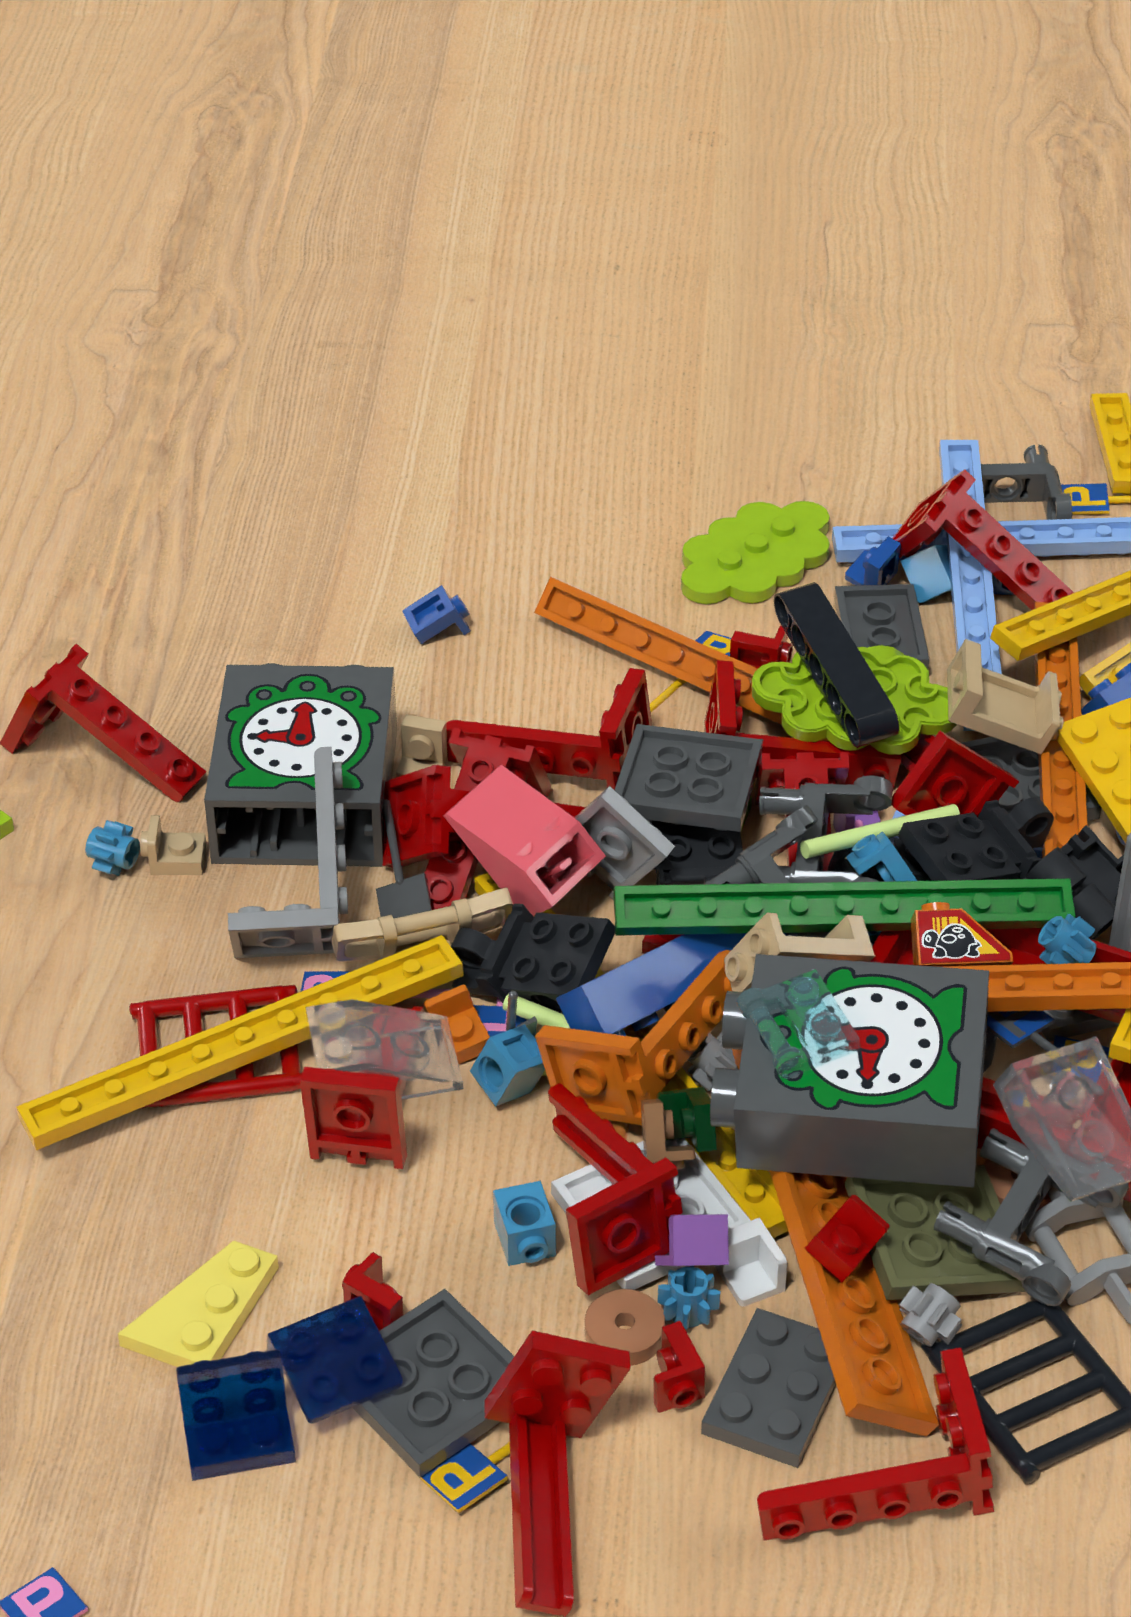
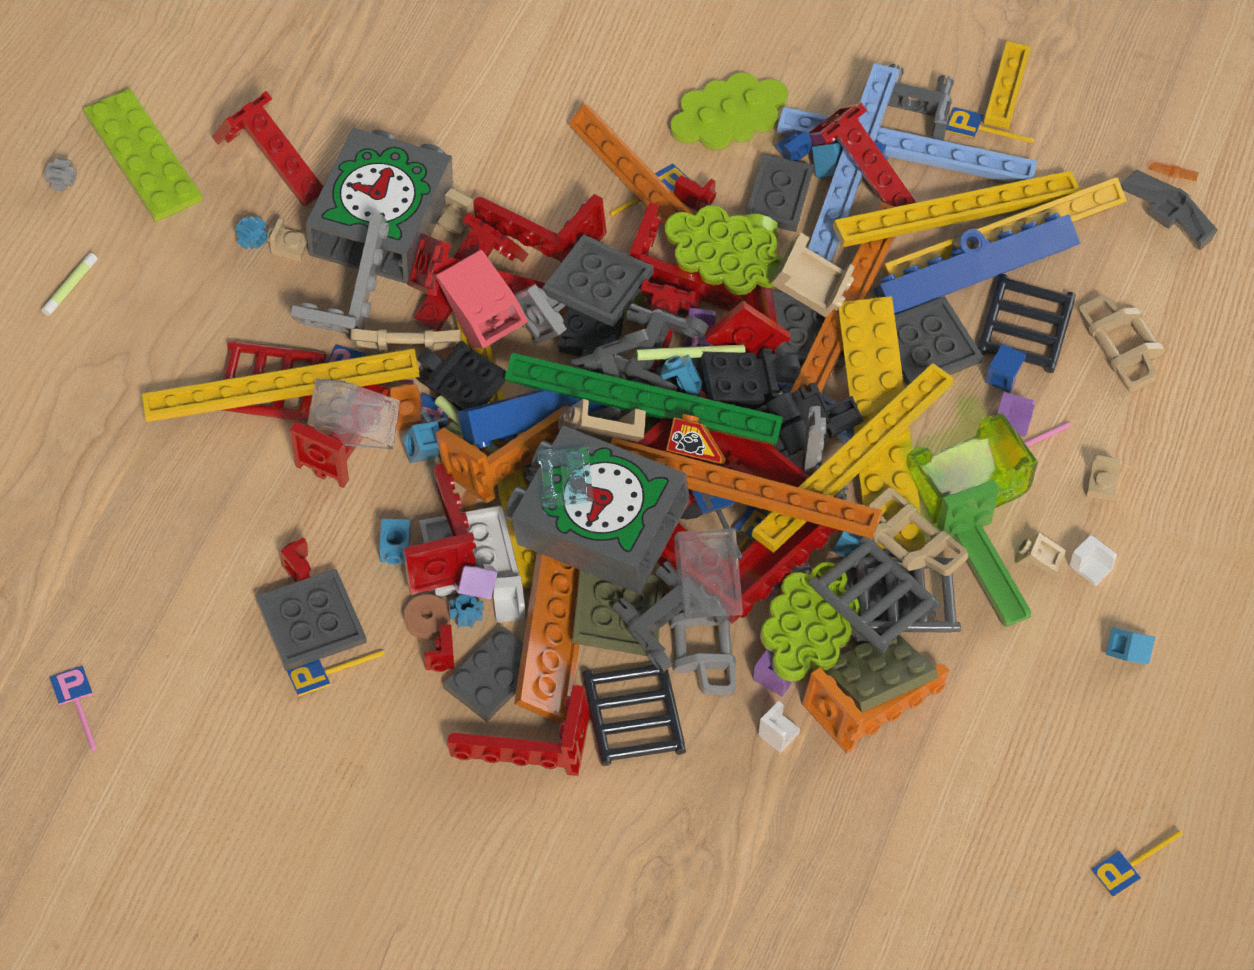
camera: 15 degrees right, 15 degrees up
(204, 1310) = (207, 543): light yellow wing -> none
(235, 1414) = (199, 611): clear blue bracket -> none
(335, 1360) = (260, 595): clear blue bracket -> none
(405, 895) = (409, 313): dark grey piece -> none
(435, 613) = (505, 110): blue bracket -> none
(544, 1394) = (360, 648): red bracket -> none
(656, 1128) = (482, 509): medium nougat bracket -> none
(691, 1116) = (498, 503): dark green bracket -> none
(836, 665) = (716, 227): black beam -> none
(847, 1237) = (557, 604): red bracket -> none
(930, 1314) = (589, 659): light grey gear -> none
(1067, 941) = (761, 458): dark azure gear -> none

